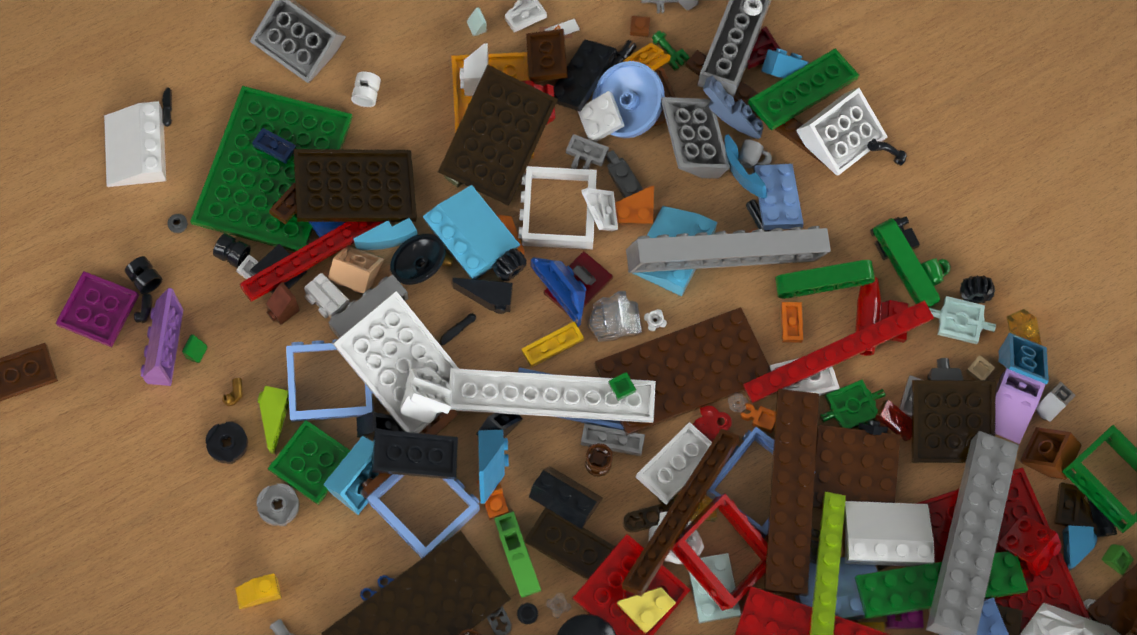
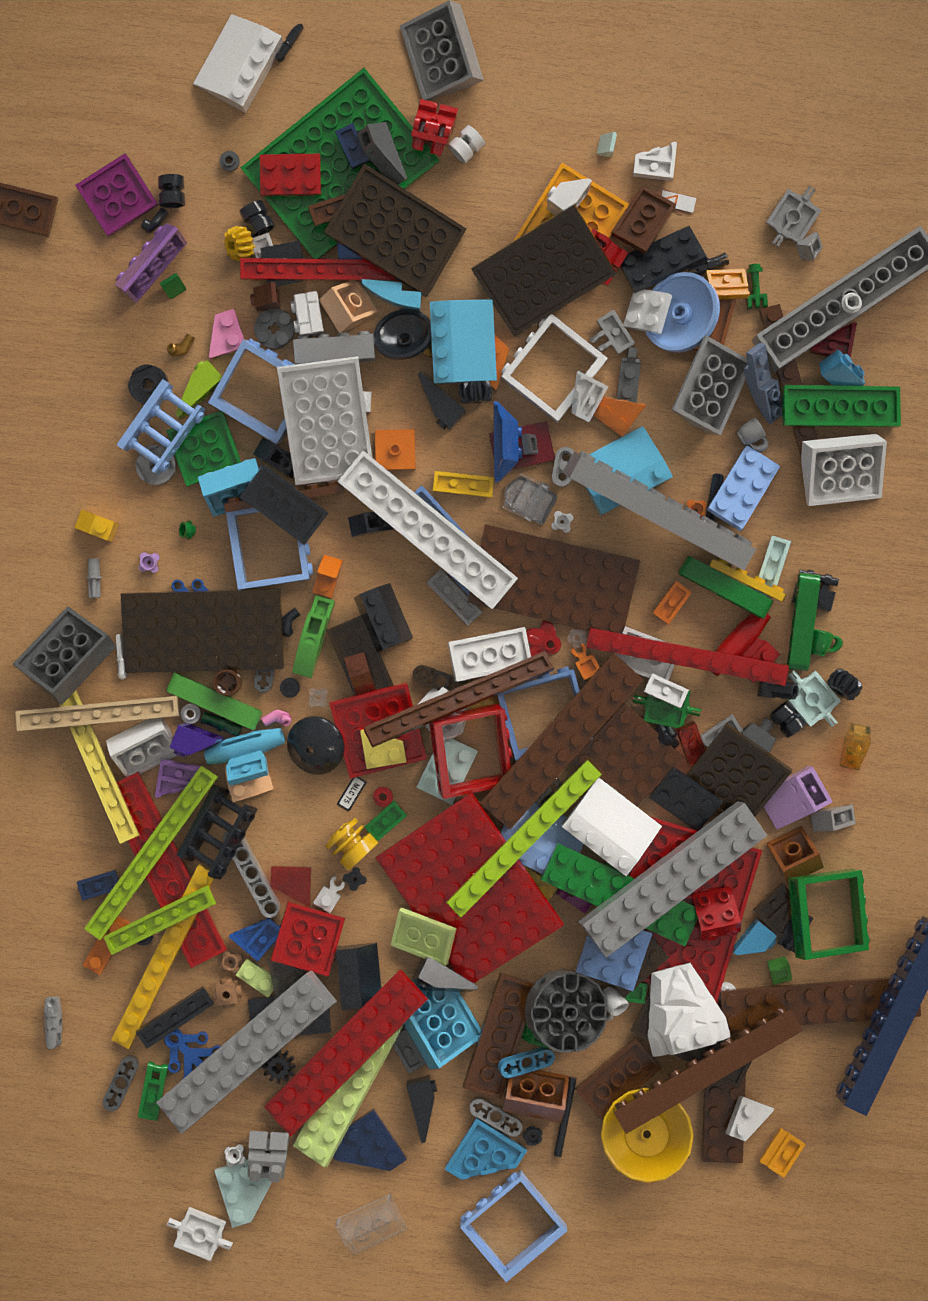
camera: 35 degrees right, 20 degrees up
(228, 277) = (238, 243): none -> yellow gear
(237, 199) = (290, 175): none -> red plate
(244, 455) = (152, 409): none -> light blue fence
(267, 358) = (225, 334): none -> bright pink wing
(301, 133) = (380, 149): none -> dark grey slope
(305, 316) = (280, 338): none -> dark grey plate
(321, 590) = (144, 558): none -> lavender plate
(330, 92) = (433, 126): none -> red hips
(342, 540) = (187, 530): none -> green plate
(425, 395) = (327, 459): white piece -> none
(455, 330) = (394, 416): black piece -> none
(476, 353) = (395, 449): none -> orange plate
(484, 554) = (287, 621): none -> black arm
(491, 461) = (341, 551): dark azure slope -> none
(580, 553) = (359, 673): none -> copper slope
(598, 459) = (429, 607): reddish brown wheel -> none
(622, 386) = (486, 565): green plate -> none
(624, 277) = (559, 466): none -> light grey plate
(639, 26) = (747, 245): dark orange plate -> none
(752, 182) = (728, 462): dark azure slope -> none
(843, 391) = (666, 690): none -> white plate
(846, 238) = (774, 561): none -> light aqua plate
(866, 253) = (757, 583): none -> yellow plate
(875, 145) = (863, 501): black piece -> none
(923, 334) = (771, 690): none -> black piece
(928, 469) = (685, 799): none -> black plate
(956, 348) = (787, 719): none -> black wheel
(980, 369) = (794, 749): tan plate -> none
(1024, 357) = (832, 770): dark azure slope -> none

